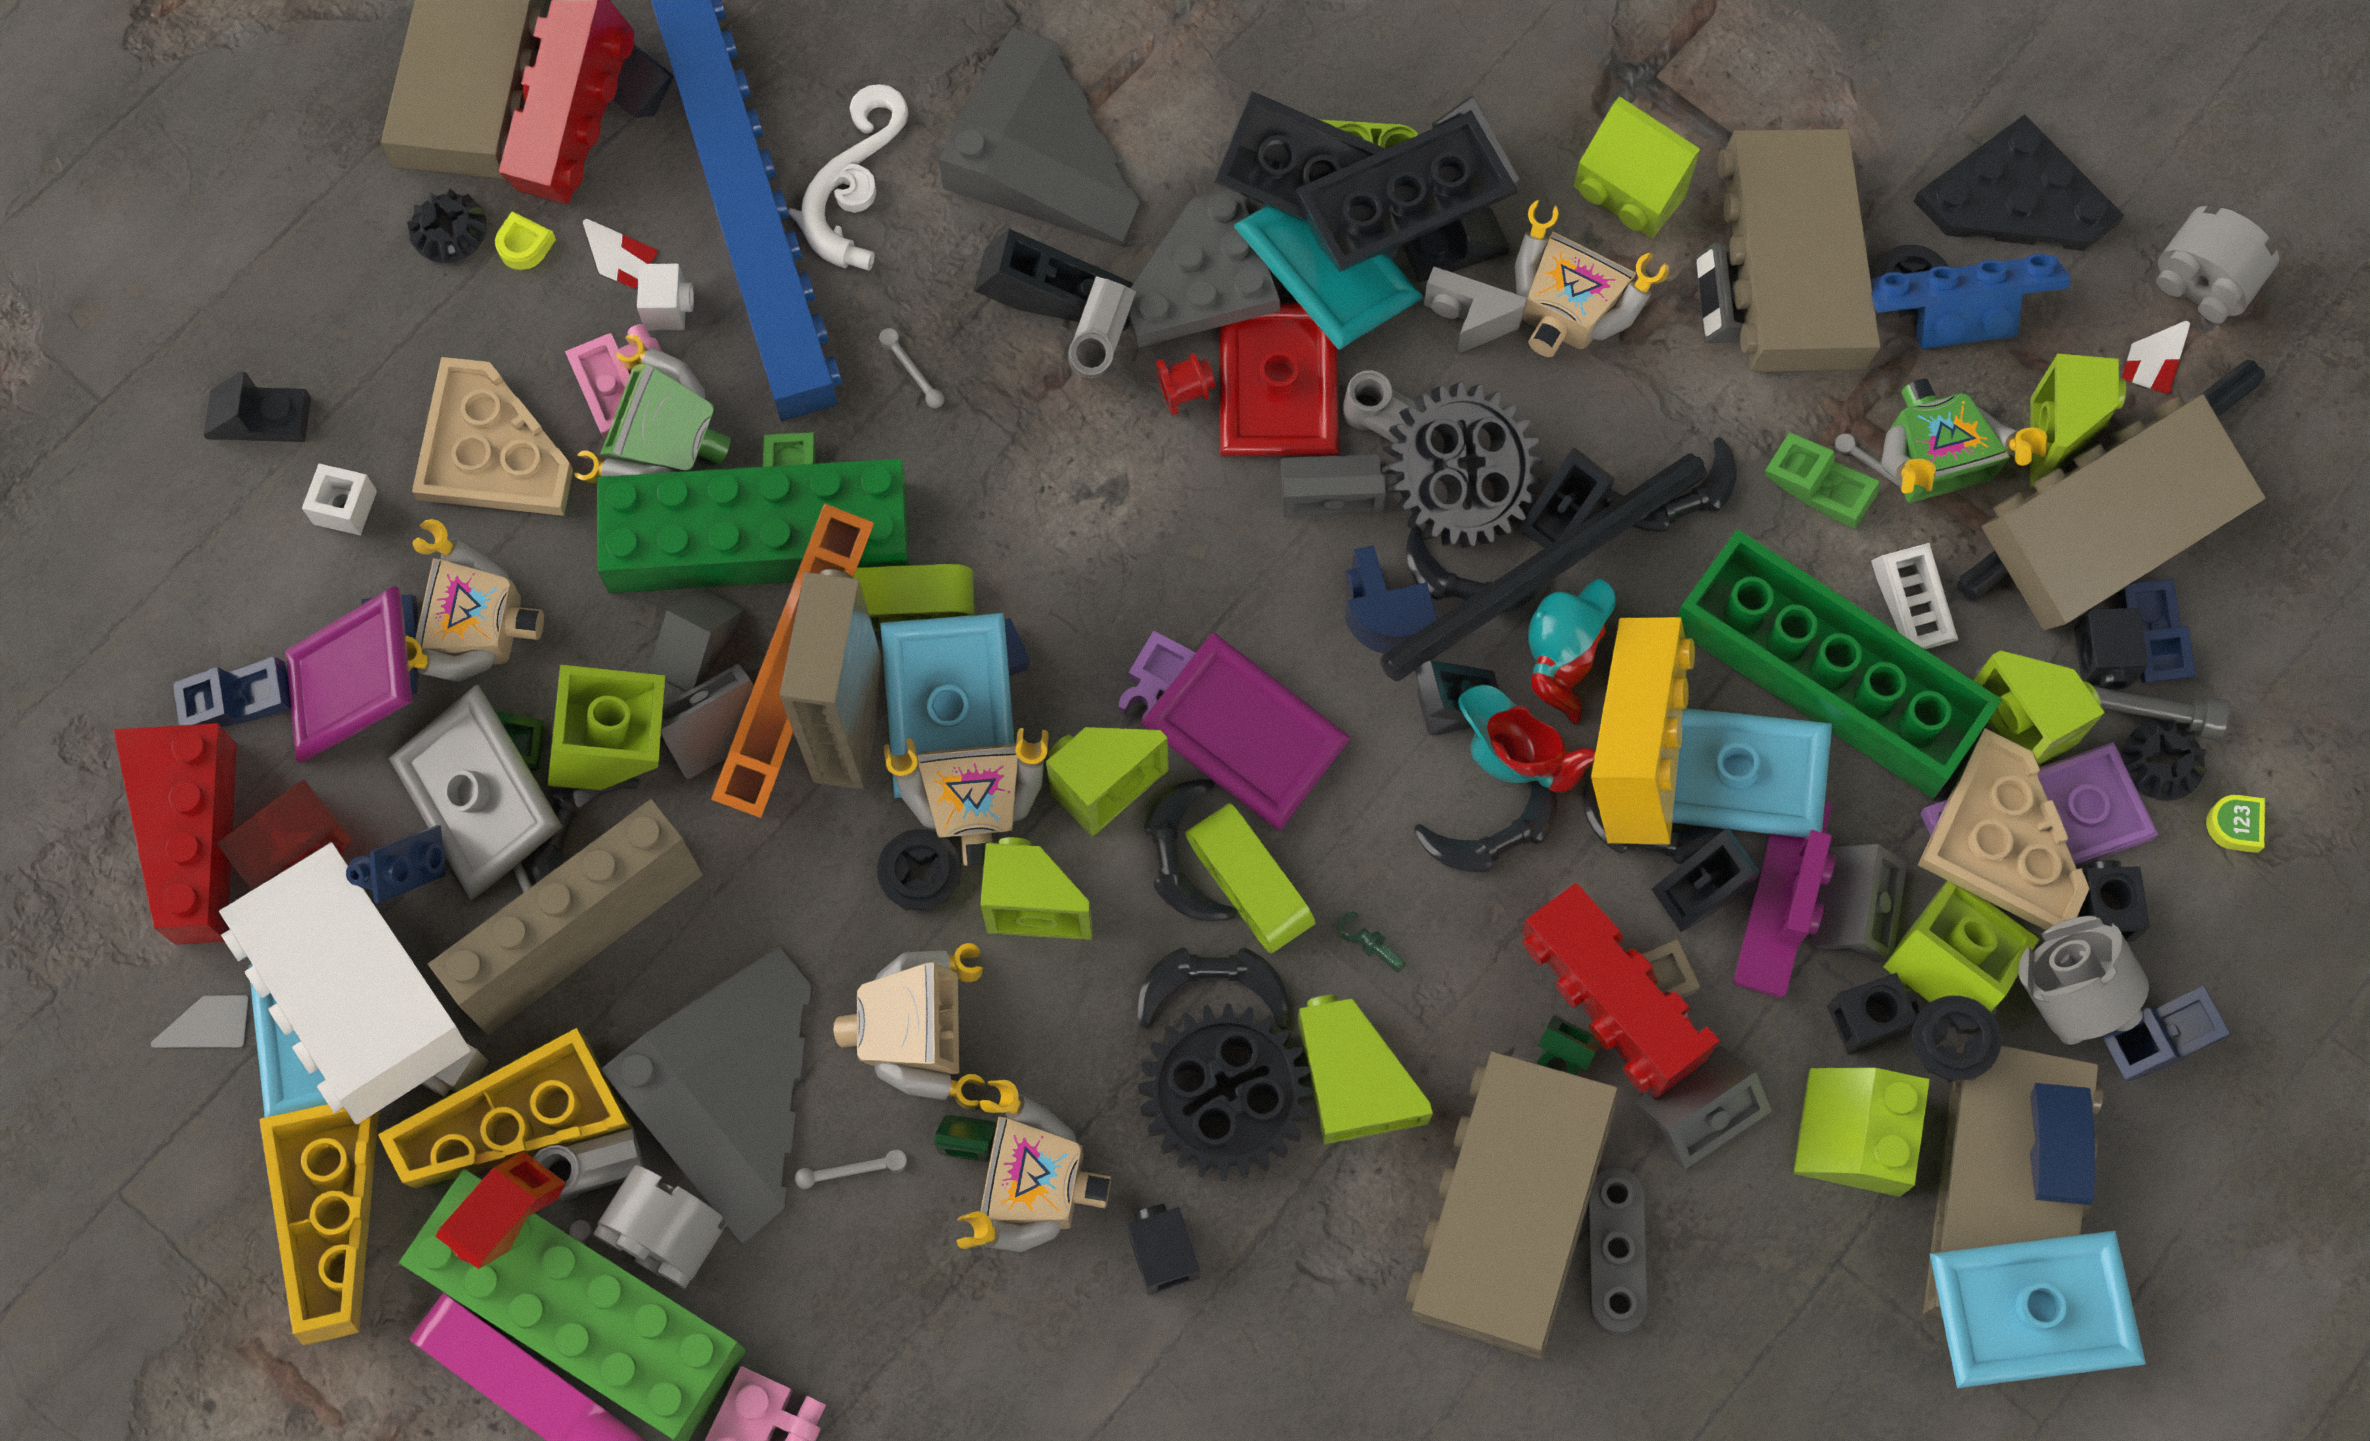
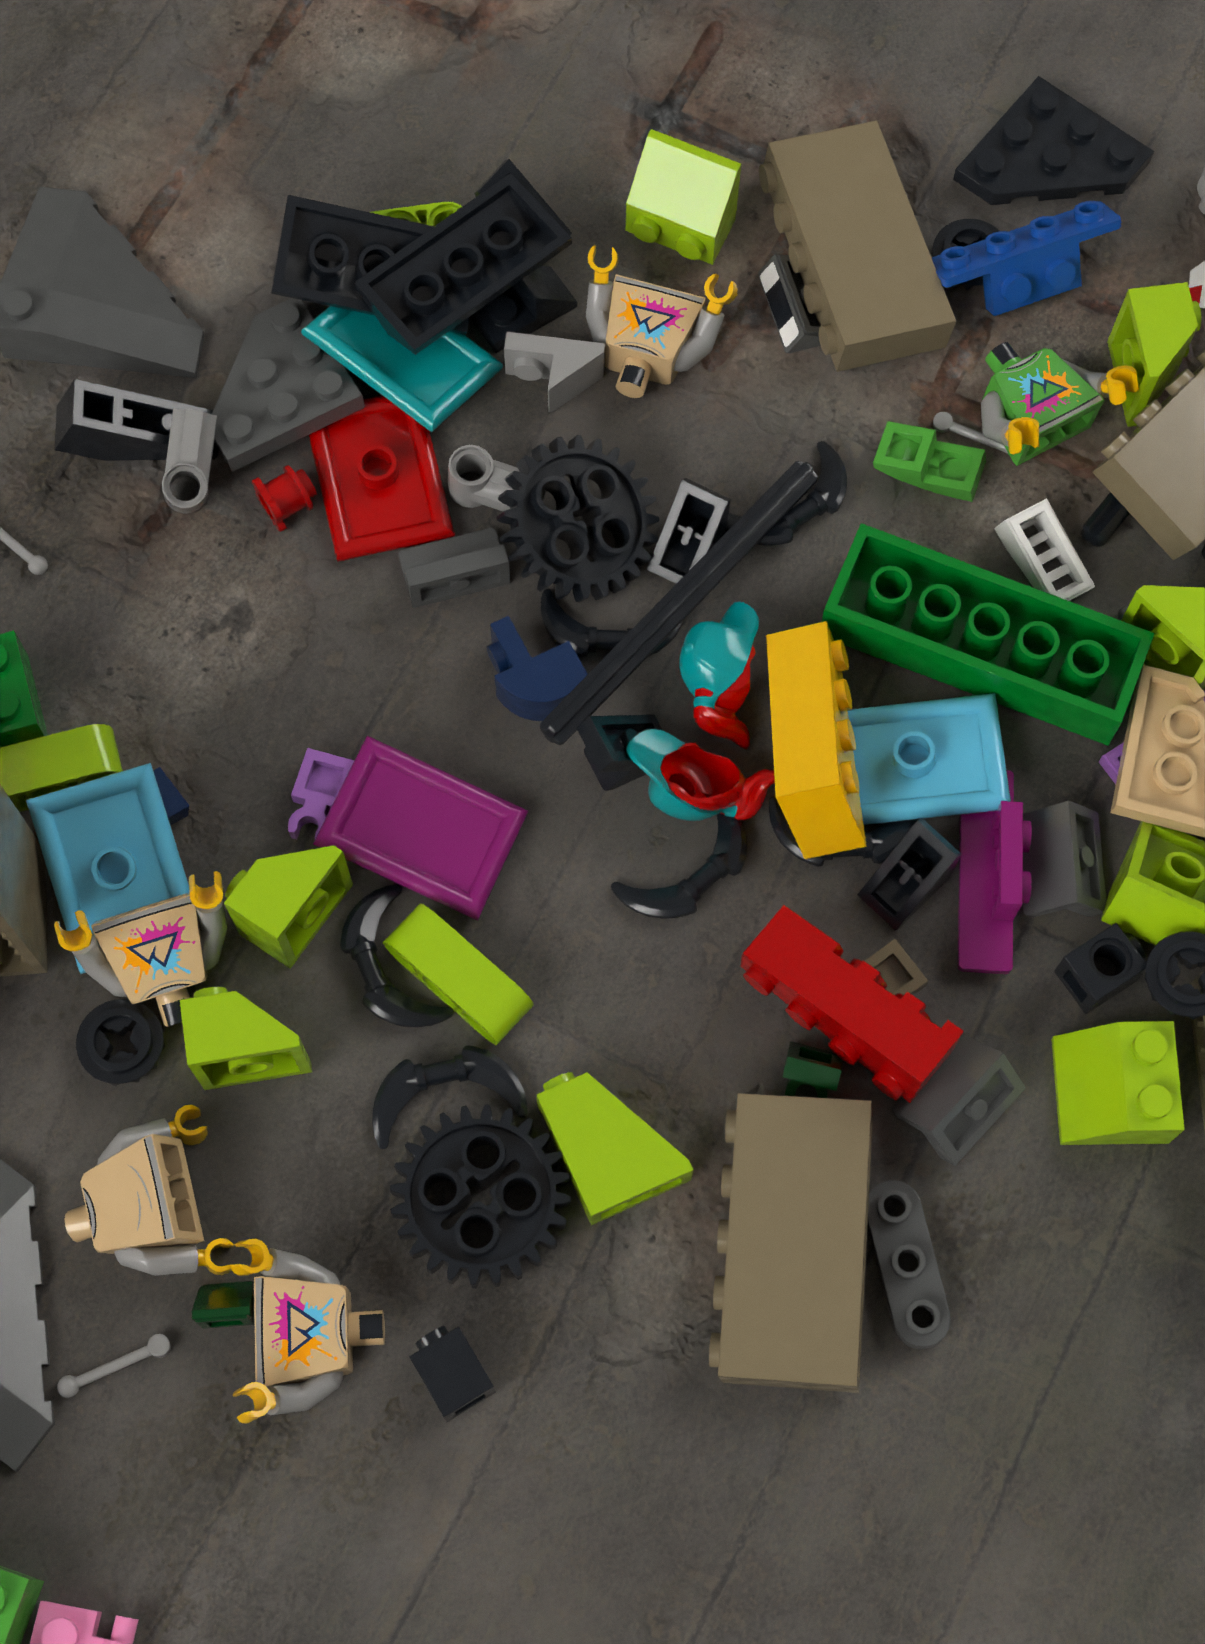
camera: 15 degrees left, 0 degrees up
(1371, 942) = (595, 1011): clear green hand -> none

